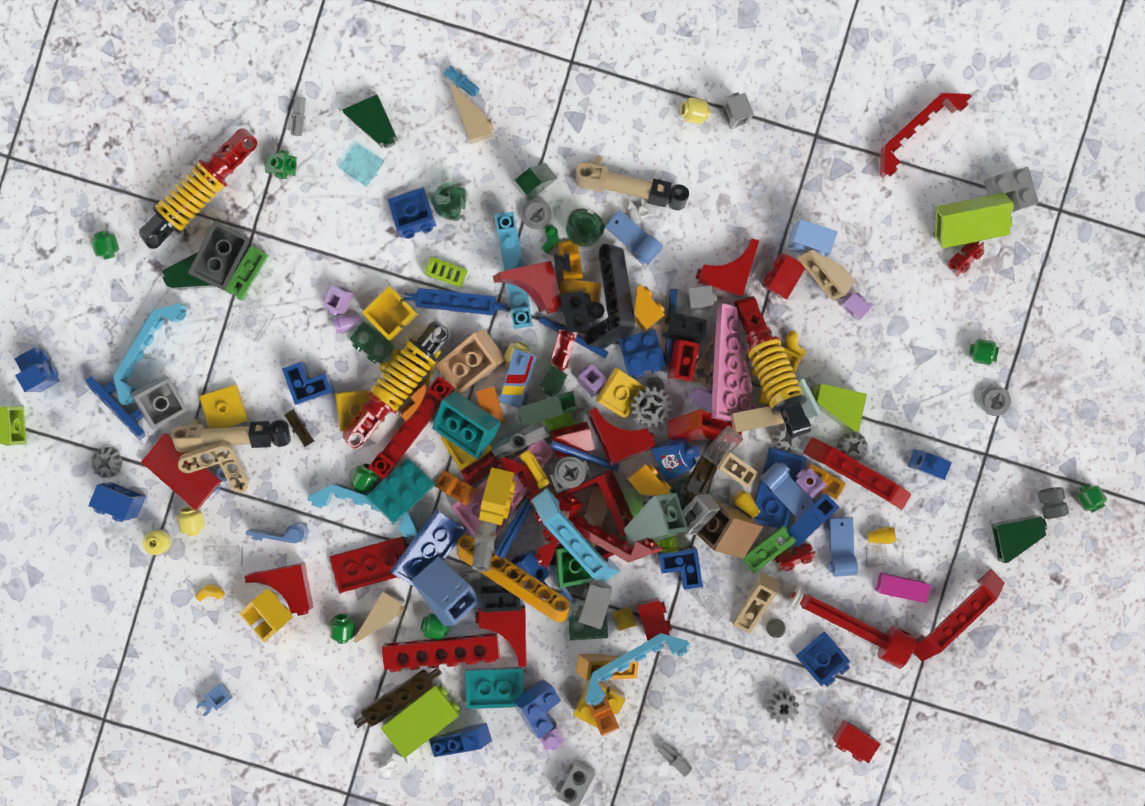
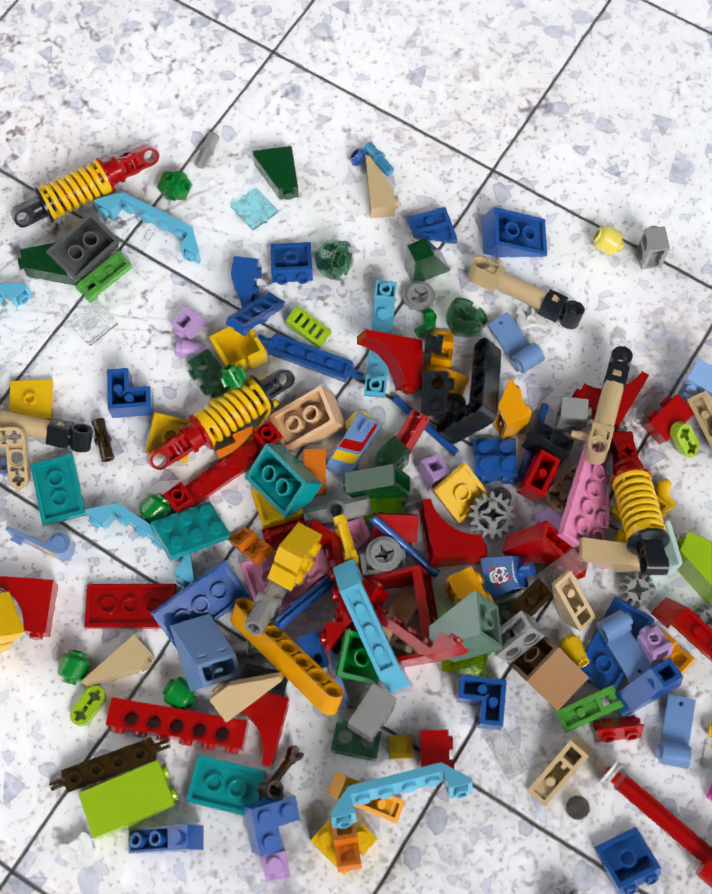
camera: 15 degrees right, 20 degrees down
(230, 199) = (112, 205): none -> medium azure slope
(276, 483) = (58, 489): none -> teal plate
(360, 653) = (92, 709): none -> lime beam
(374, 241) = (244, 278): none -> blue slope
(394, 347) = (232, 376): none -> green gear
(395, 278) = (255, 313): none -> blue hinge
(442, 85) = (358, 157): none -> blue plate
(487, 619) = (240, 693): none -> tan slope
(530, 682) = (273, 787): none -> dark brown brick
(531, 139) = (433, 225): none -> blue wing
(607, 128) = (513, 234): none -> blue slope
(729, 292) = (608, 406): none -> tan piece
(804, 290) = (681, 442): none -> lime beam

